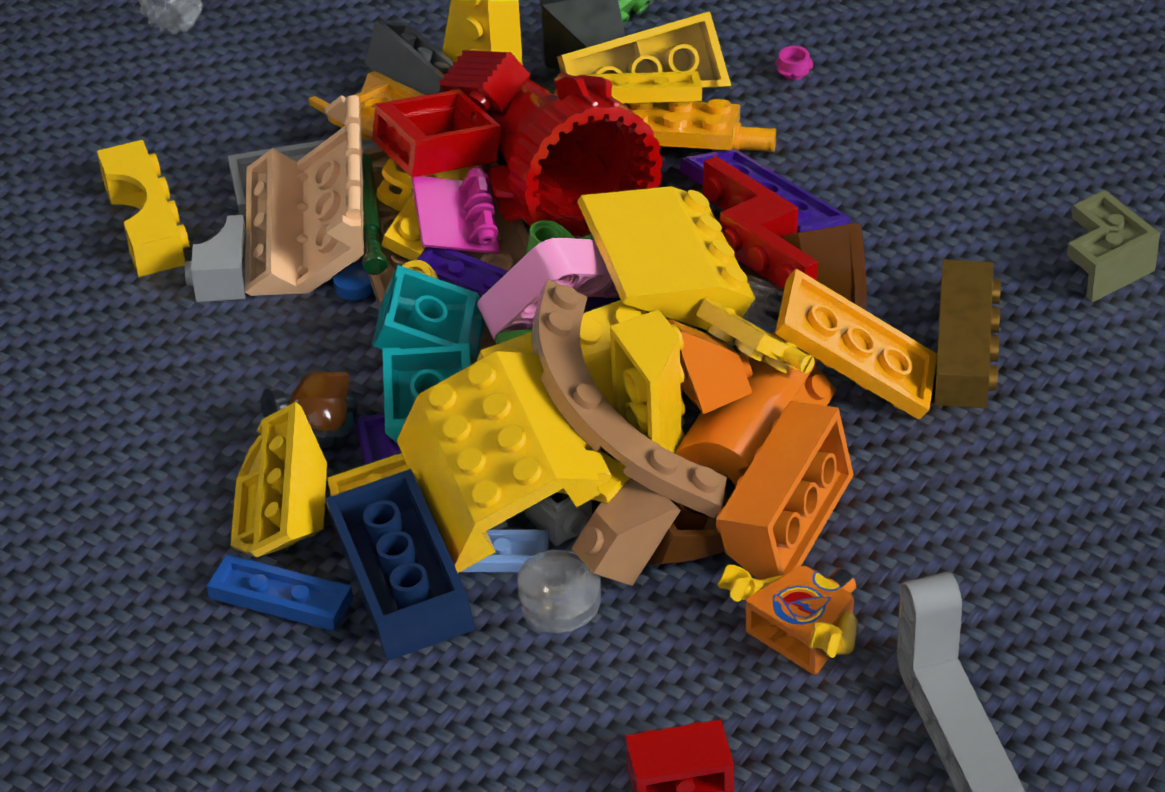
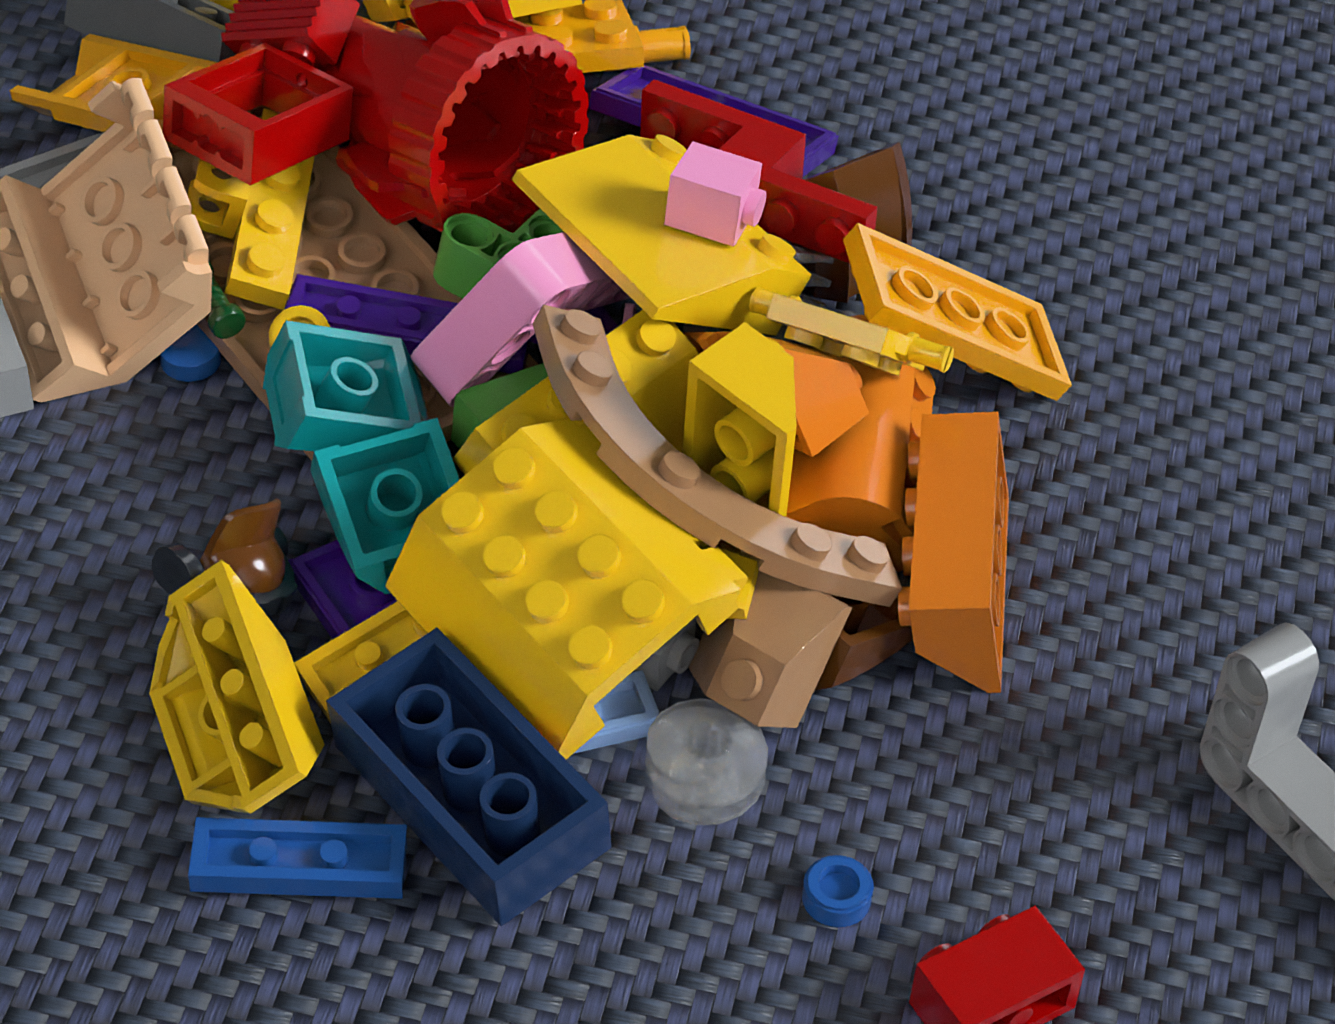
camera: 25 degrees left, 5 degrees up
(456, 213) = (324, 224): dark pink hinge -> none
(610, 689) = (837, 891): none -> blue tile
(696, 230) = (714, 194): none -> bright pink brick
(798, 612) = (1053, 719): torso -> none
(965, 334) = (1068, 268): pearl gold brick -> none
(1117, 246) = (1204, 107): olive panel -> none

